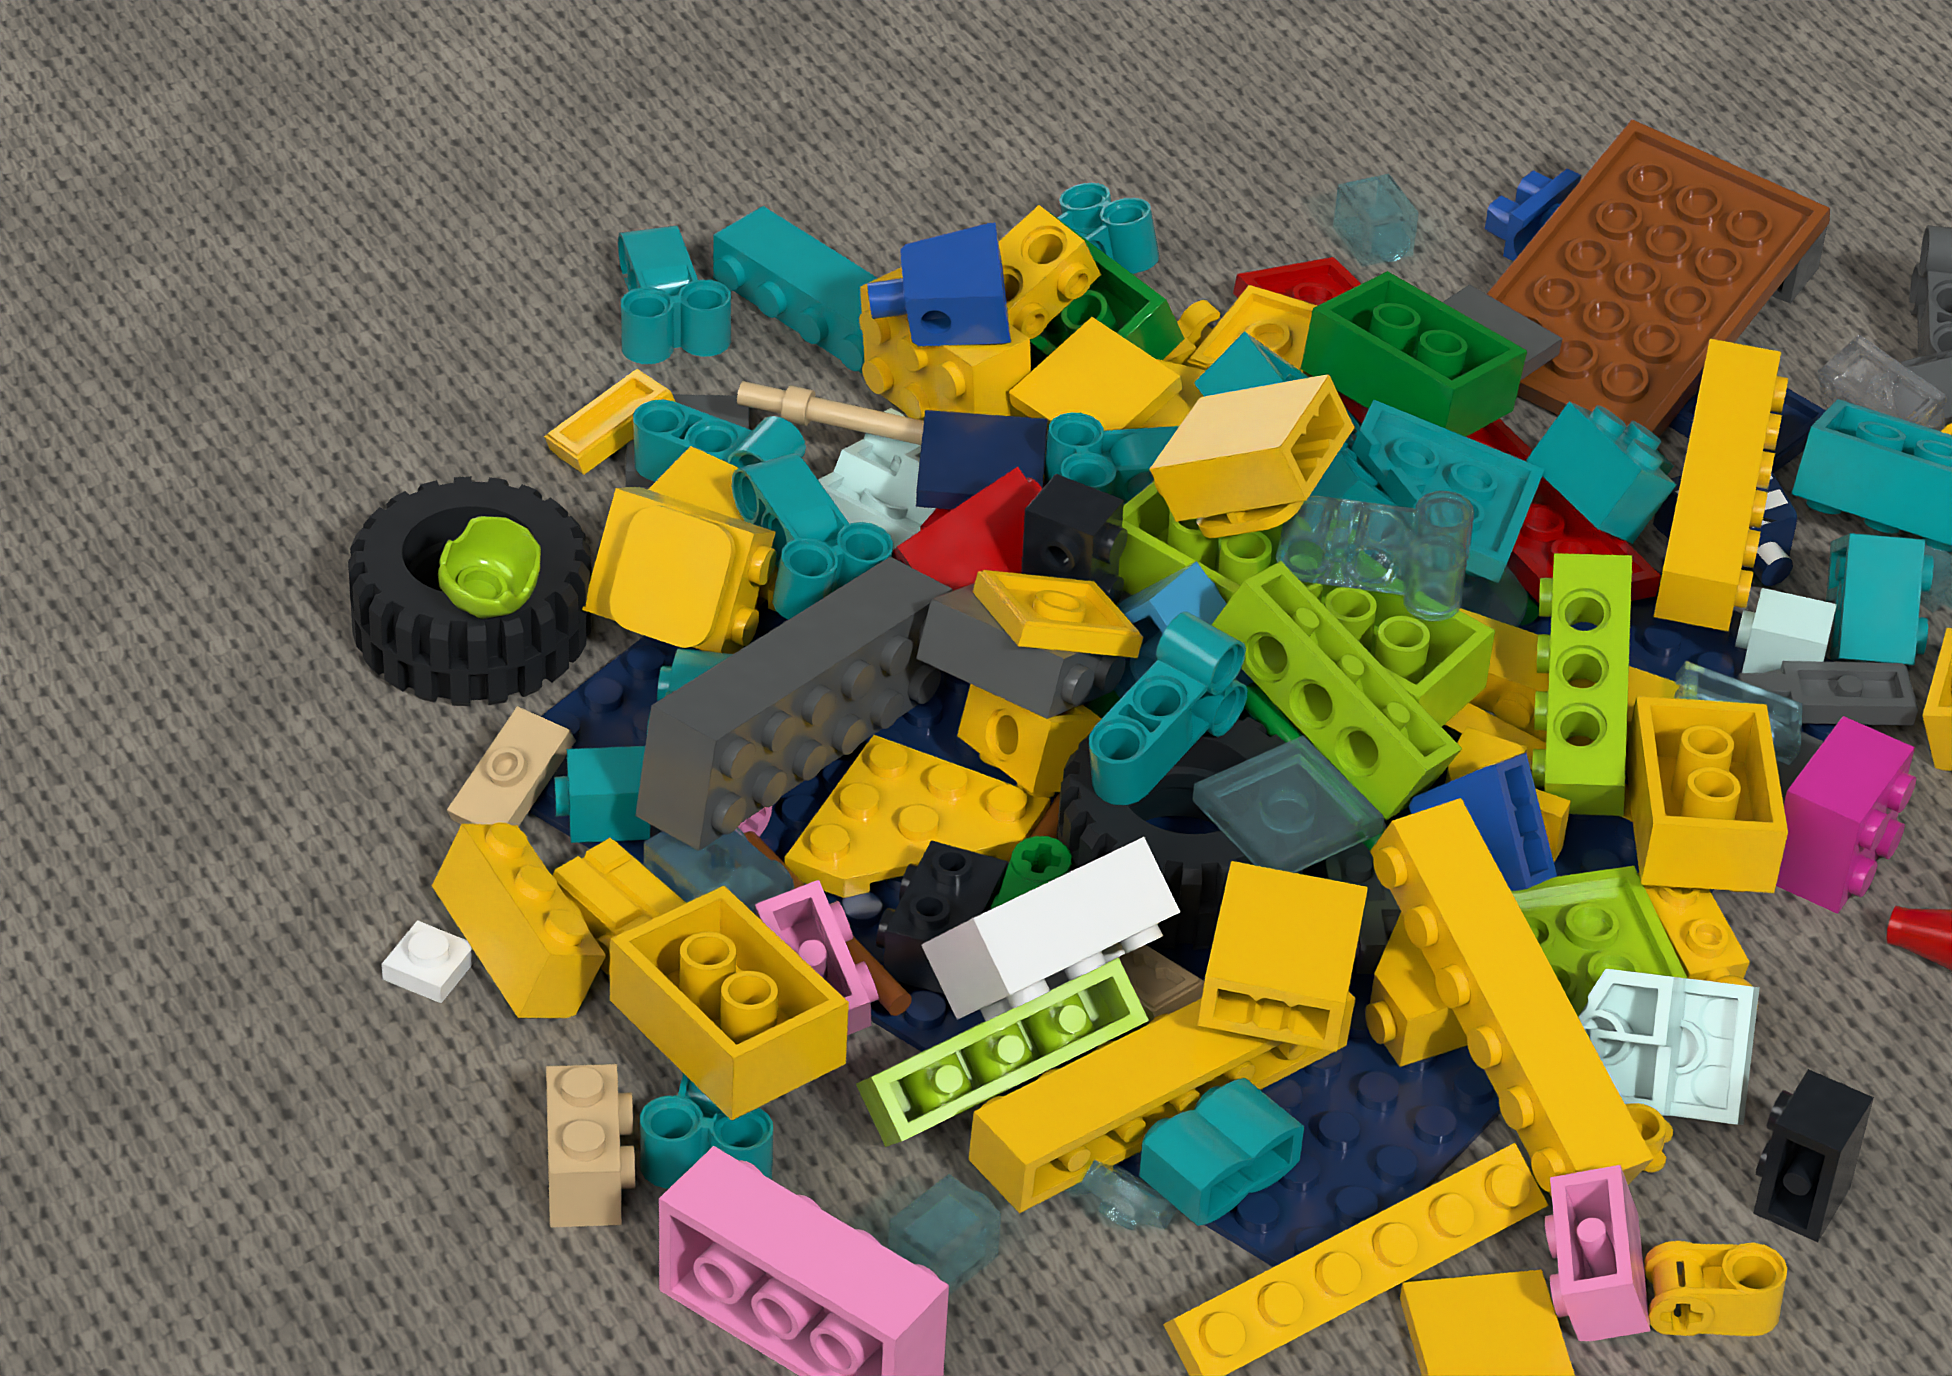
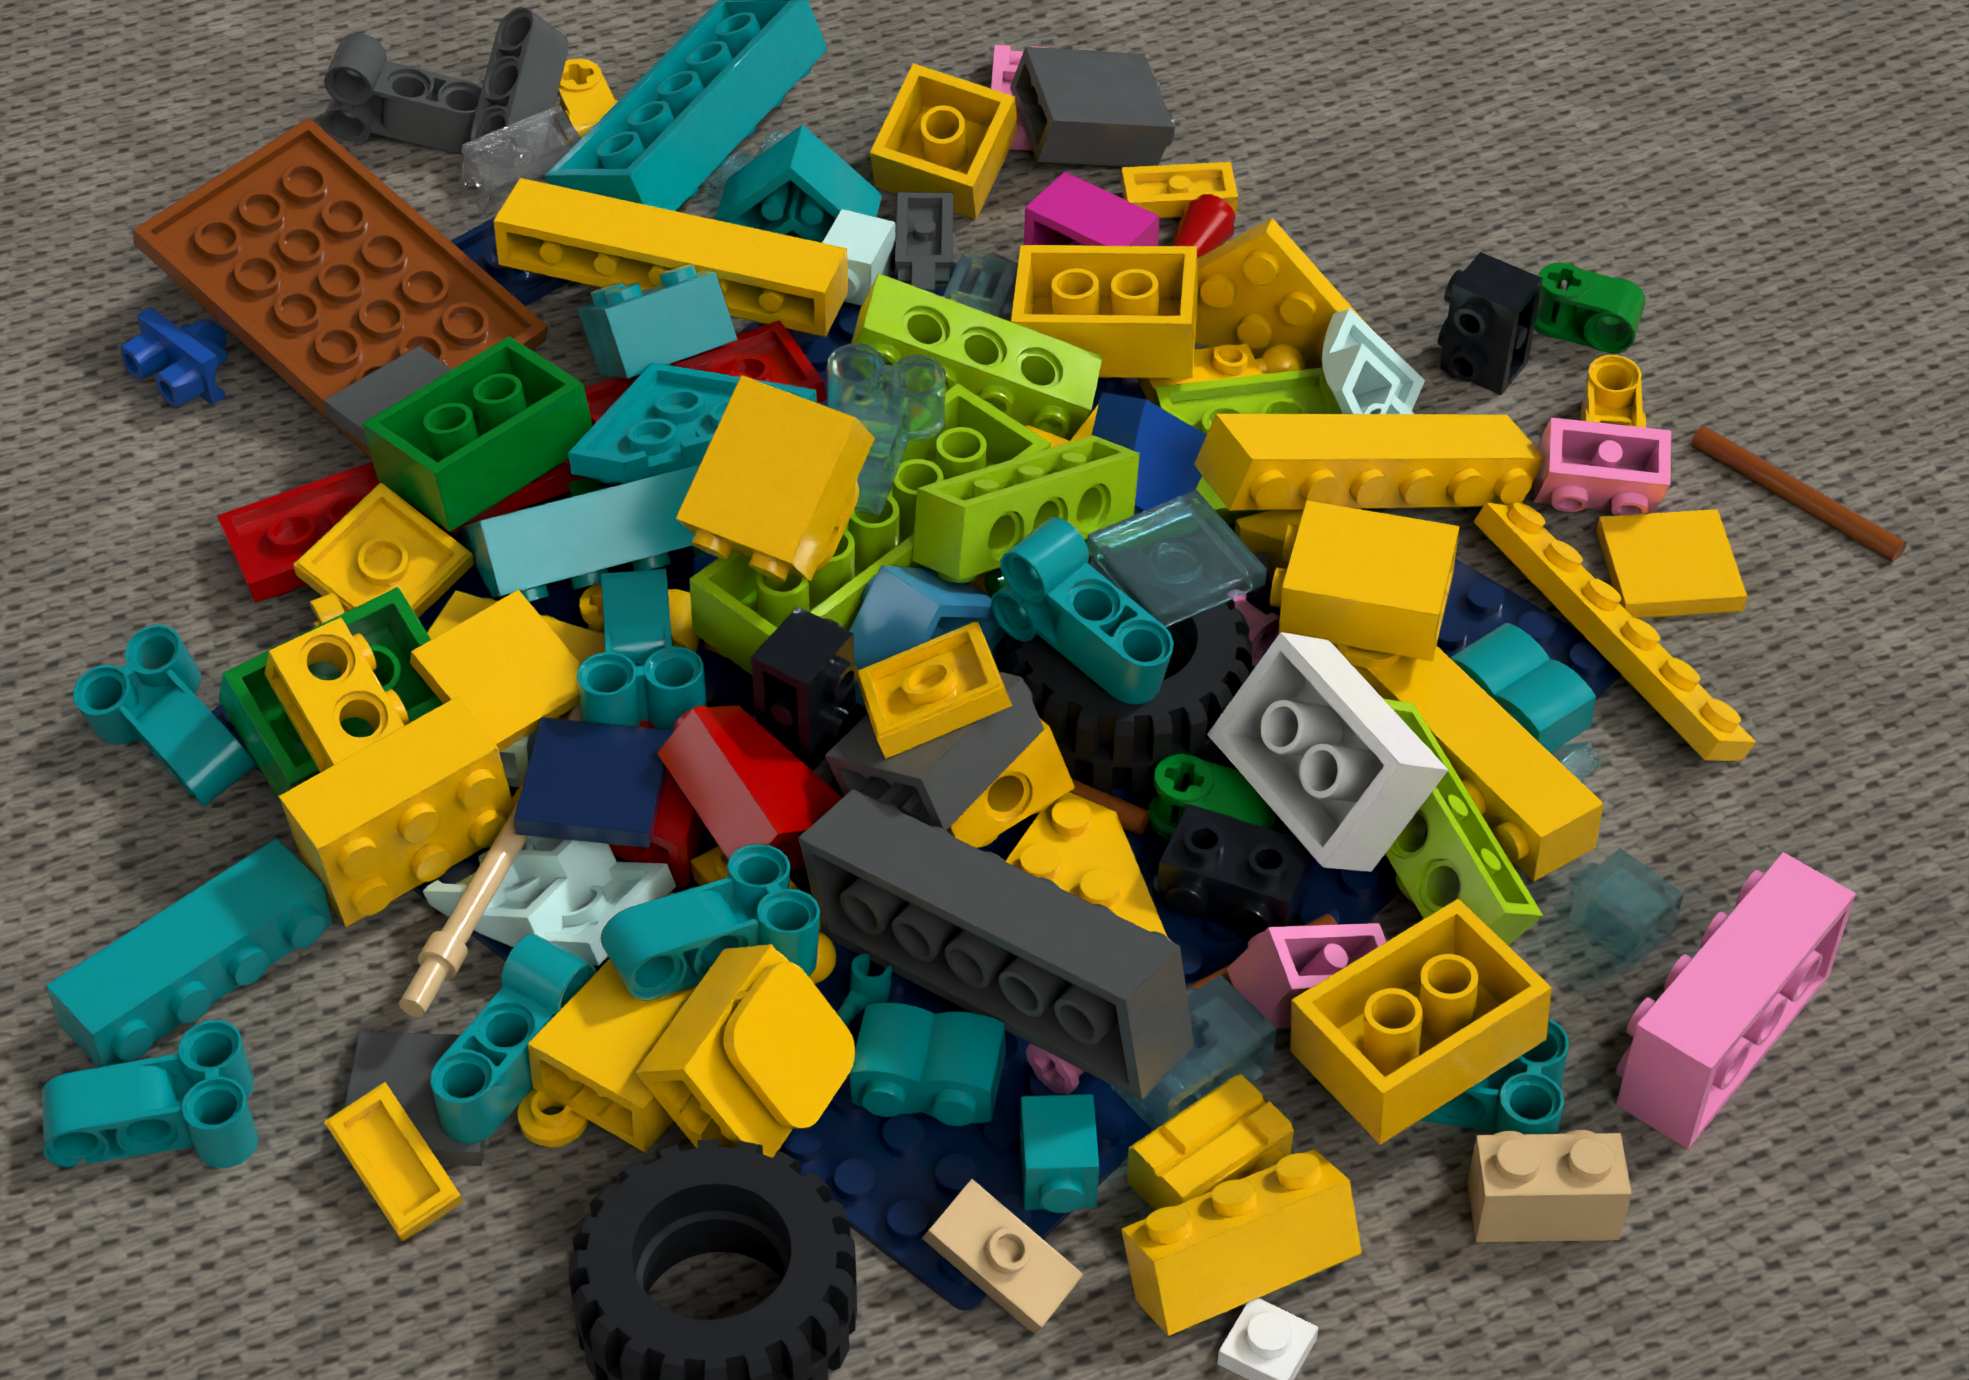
camera: 85 degrees left, 5 degrees up
(490, 567) = (797, 1200): lime hair -> none
(949, 289) = (397, 738): blue torso -> none
(1375, 220) = (163, 477): clear light blue brick -> none
(1783, 964) = (1265, 295): none -> yellow plate
(1904, 1278) = (1591, 310): none -> green piece

